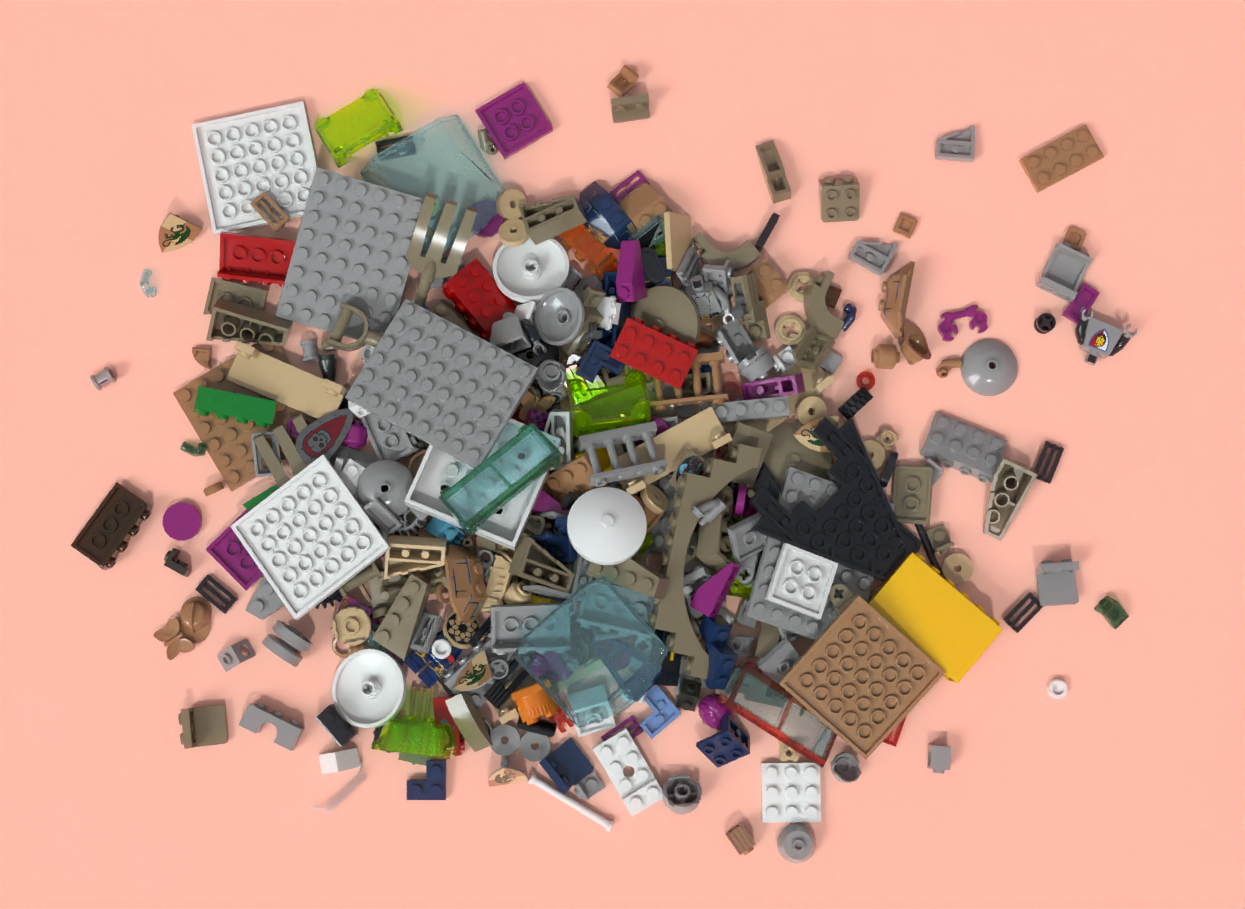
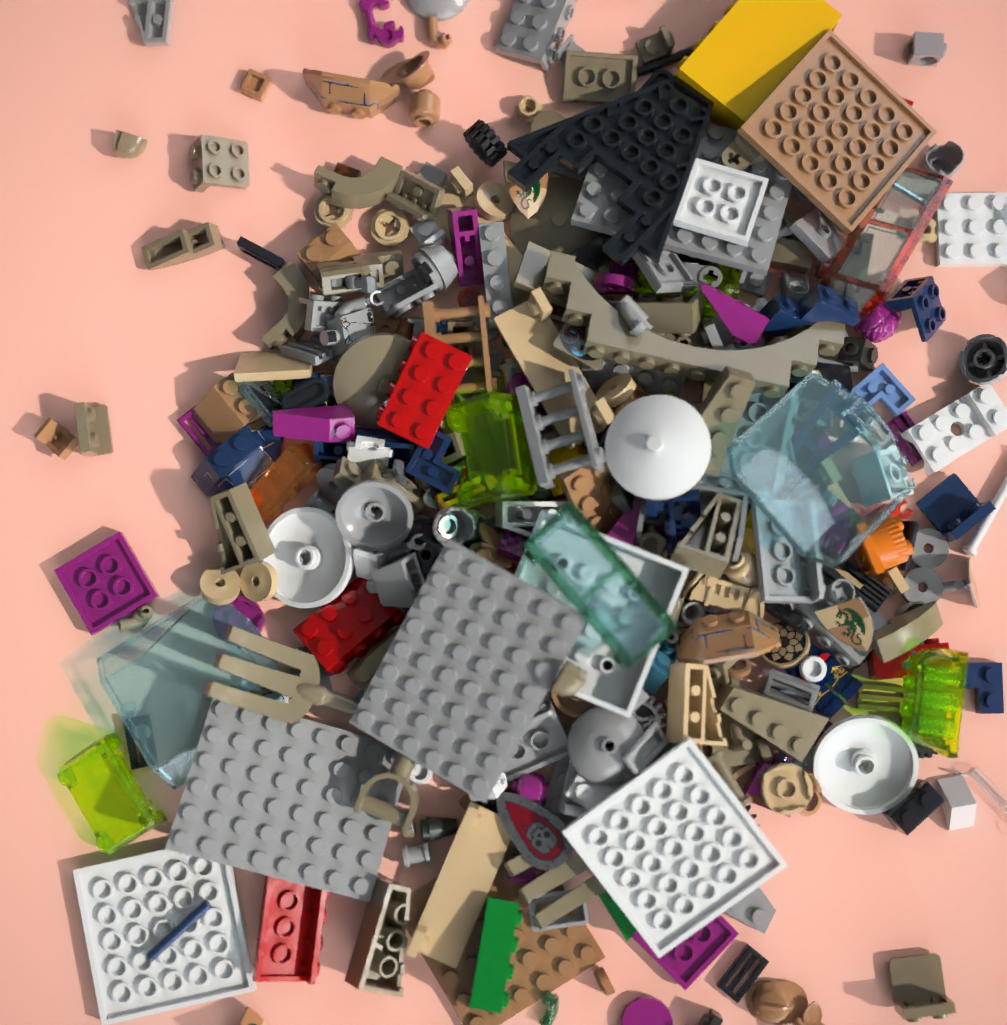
camera: 85 degrees left, 0 degrees up
(202, 356) = (423, 1000): medium nougat tile -> none
(232, 656) = (828, 948): light grey bracket -> none
(236, 293) = (337, 958): dark tan wing -> none
(258, 178) = (178, 930): none -> dark blue bar
(280, 223) = (242, 896): medium nougat tile -> none
(285, 645) = (810, 875): light grey wheel -> none
(287, 731) = (919, 873): light grey arch -> none
(432, 457) = (569, 679): none -> dark tan piece
(588, 786) = (977, 479): light grey bracket -> none
(851, 315) = (370, 151): dark blue arm -> none
(853, 129) = (128, 145): none -> dark tan piece
(869, 376) = (454, 128): clear red plate -> none
(872, 255) = (294, 123): light grey wing -> none
(888, 468) = (564, 104): black tile -> none
(963, 562) = (689, 16): tan piece -> none

